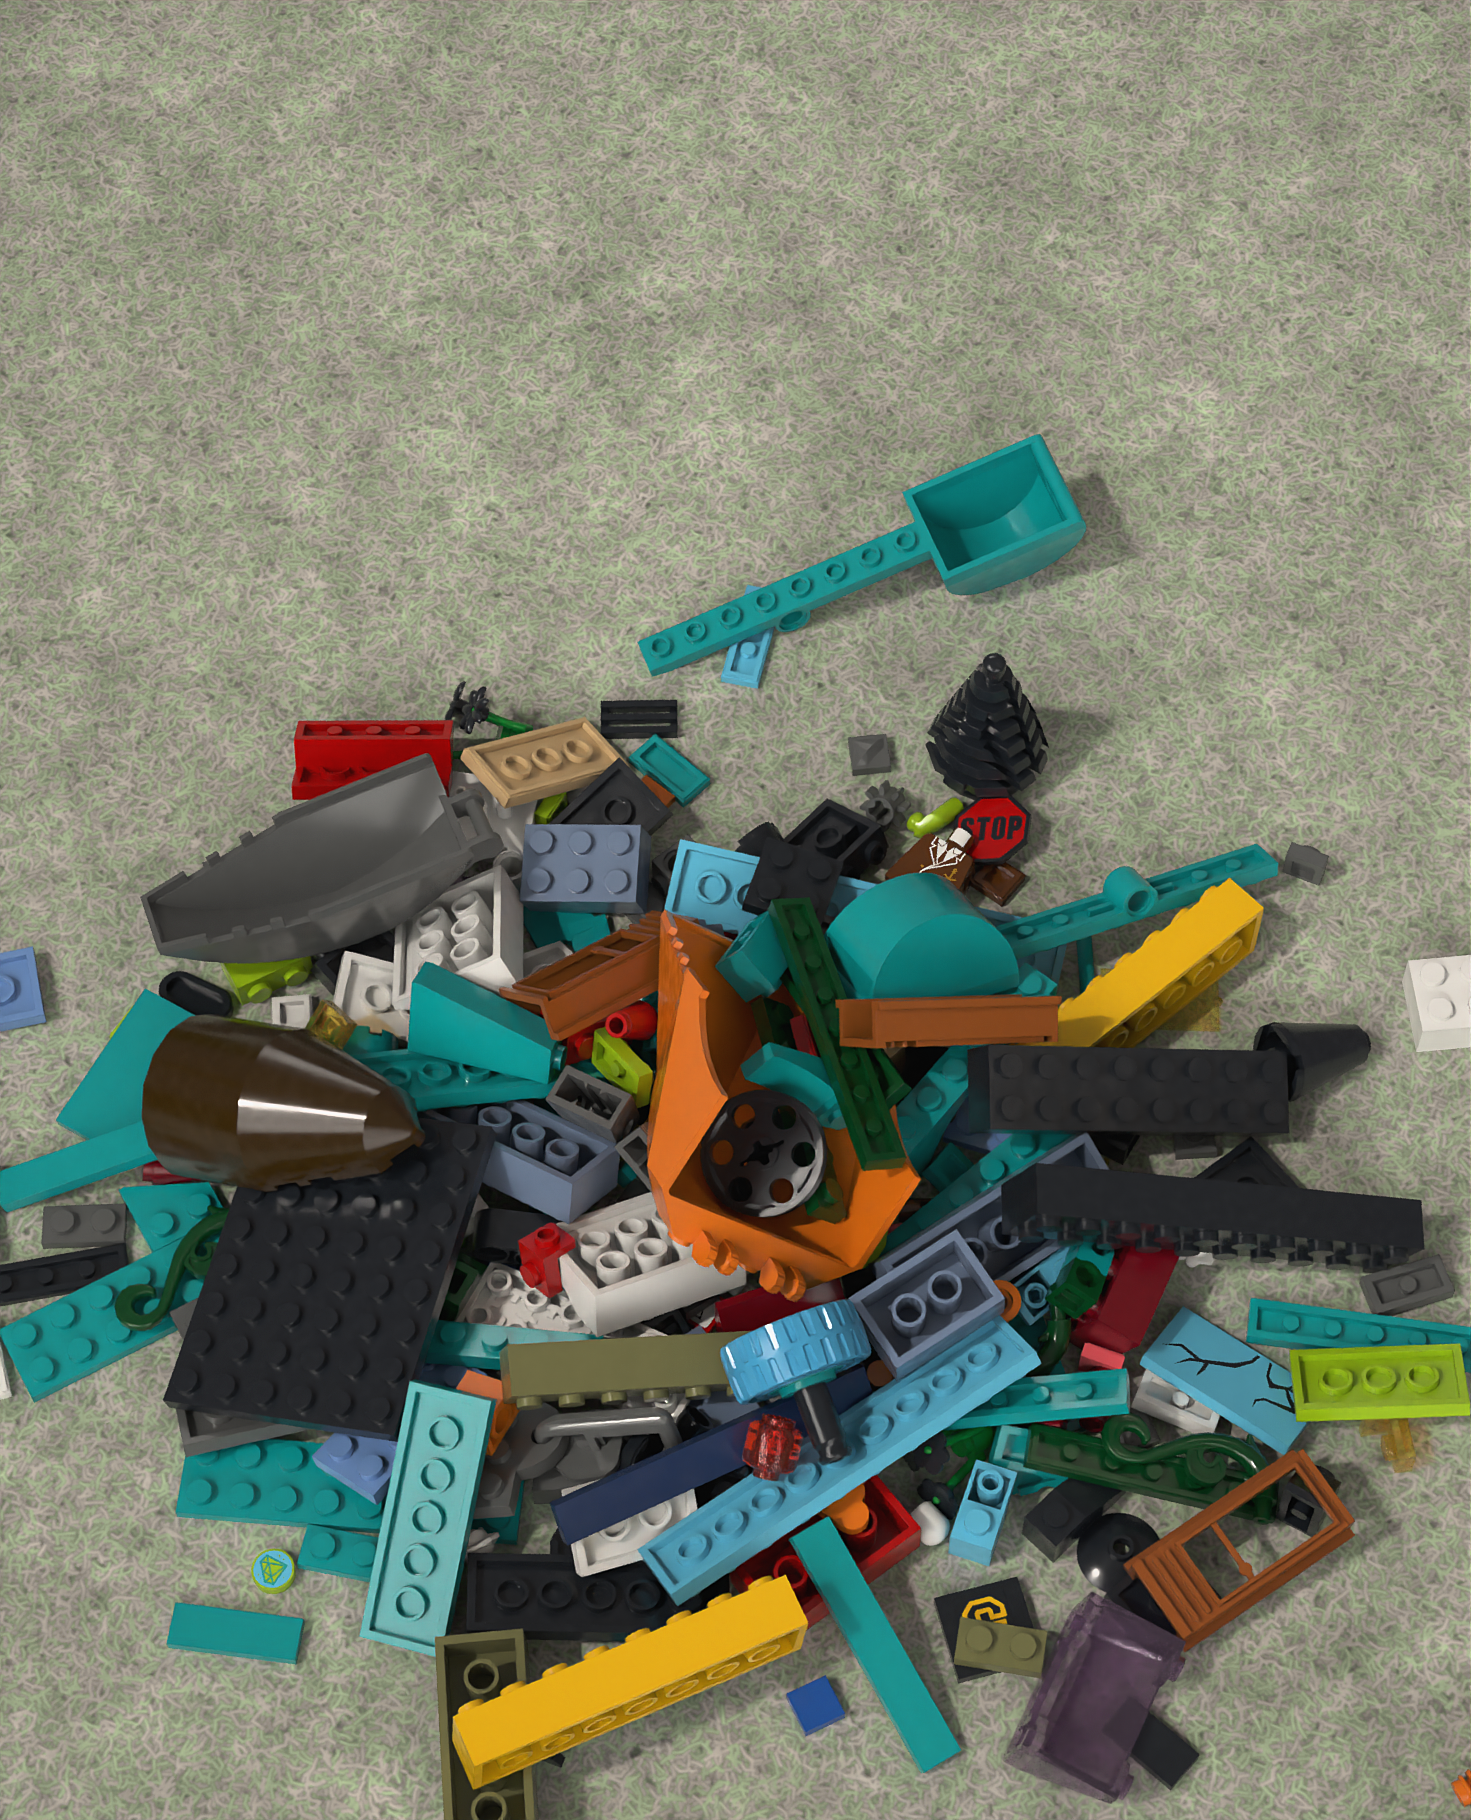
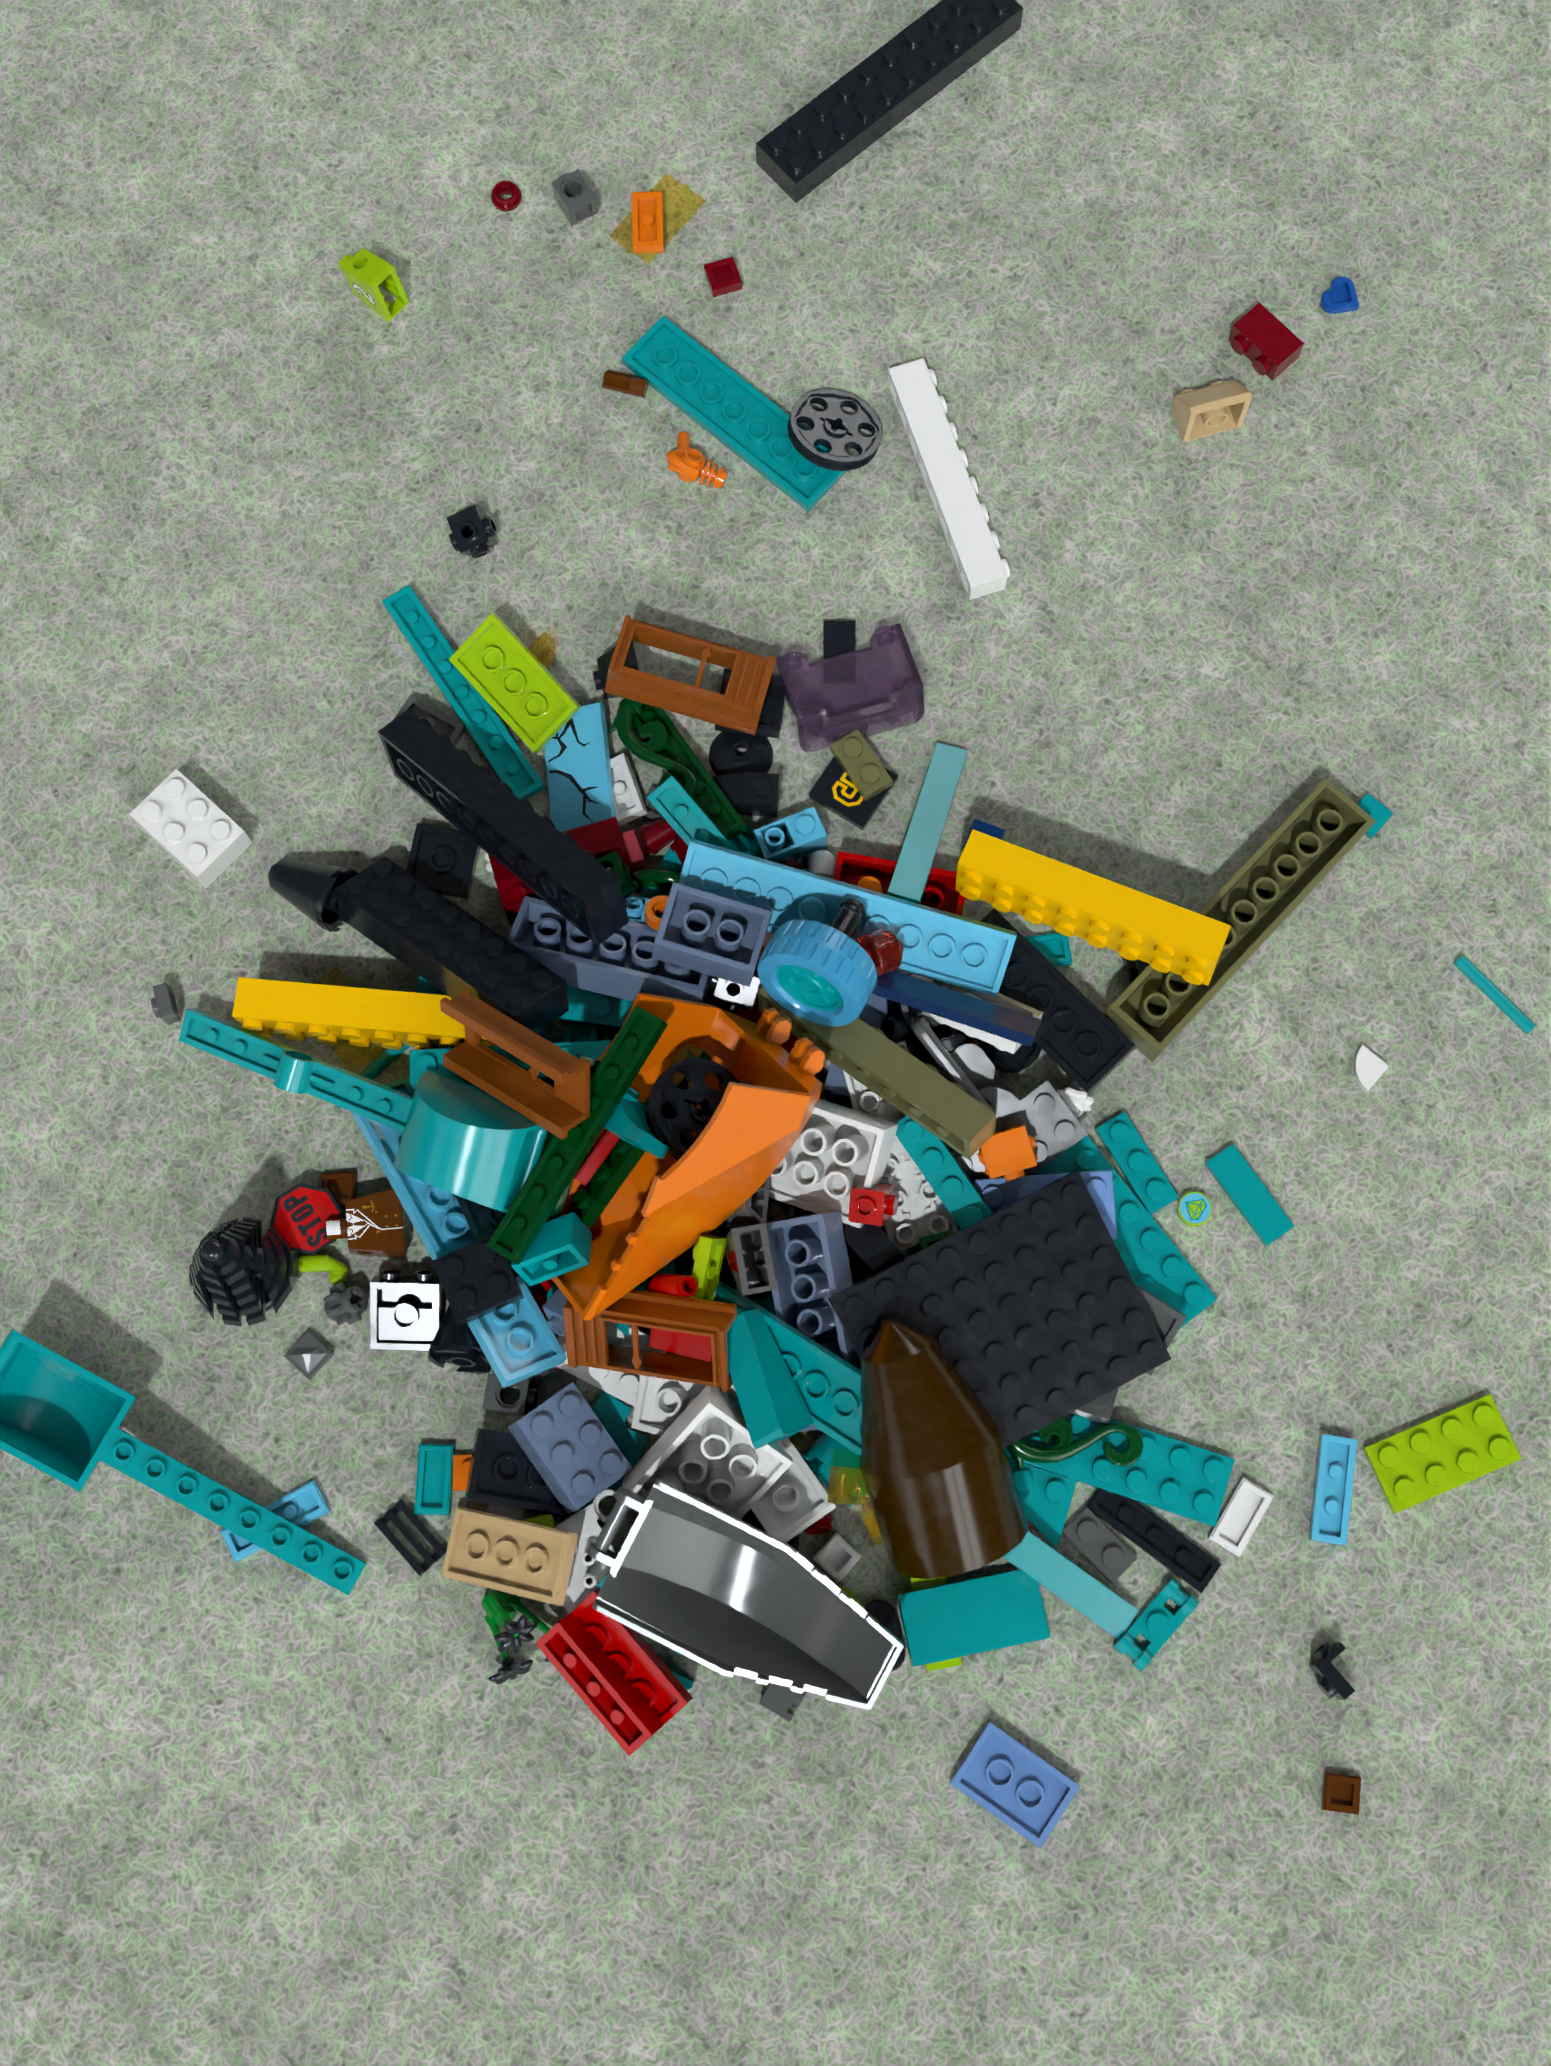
camera: 130 degrees left, 15 degrees up
(427, 1516) = (1094, 1123): plate -> none

